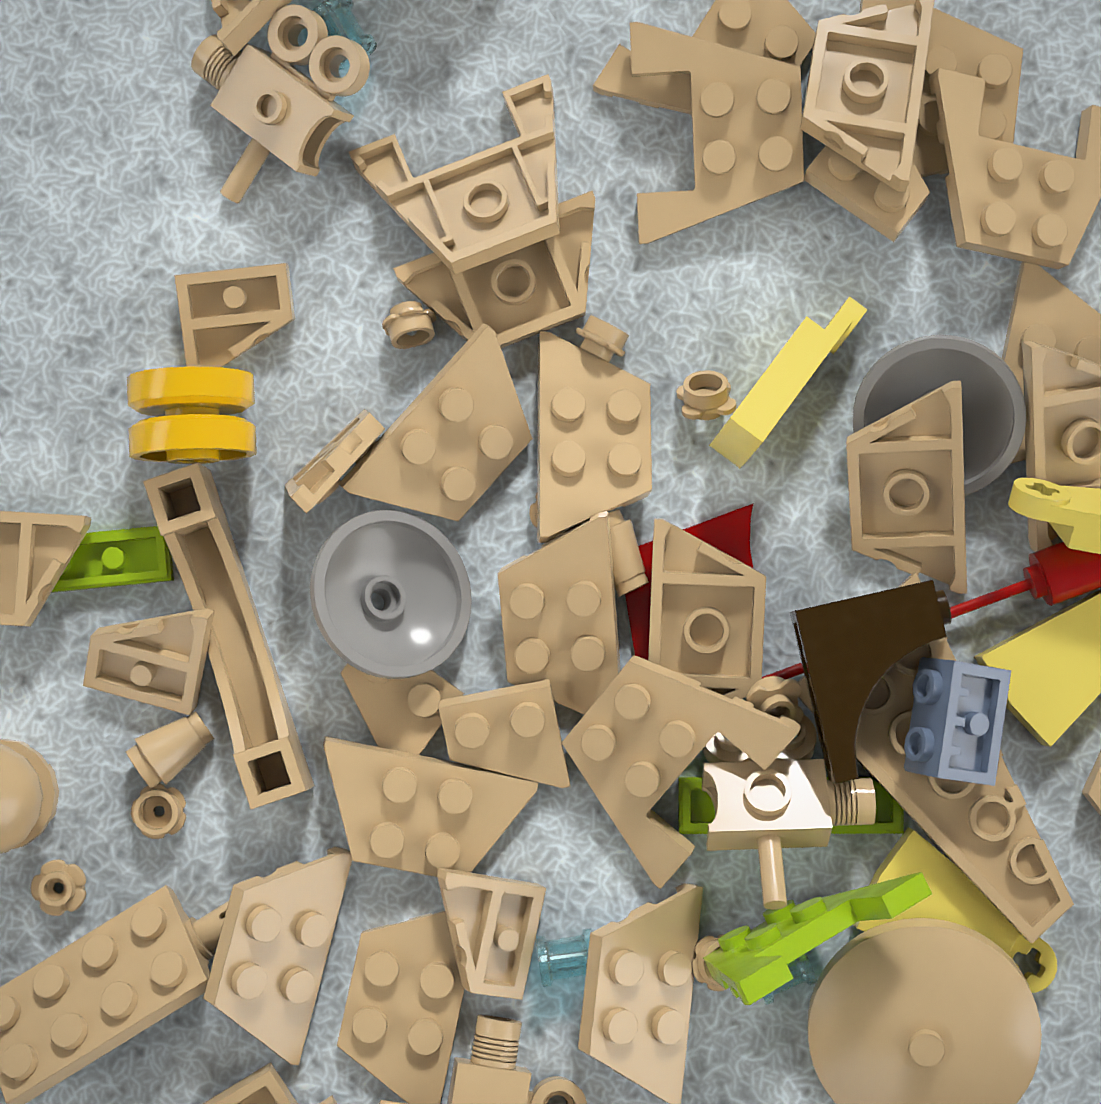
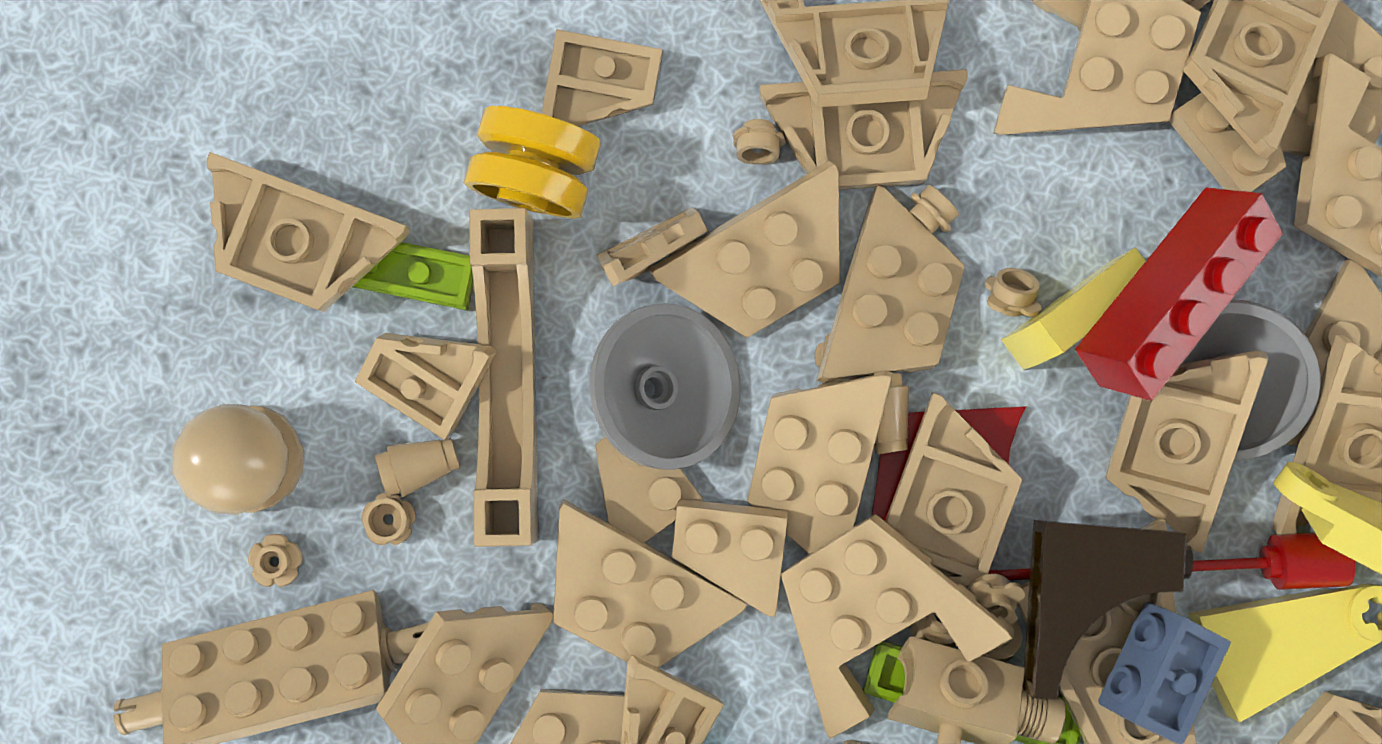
camera: 25 degrees right, 0 degrees up
(858, 348) = (1179, 292): none -> red brick

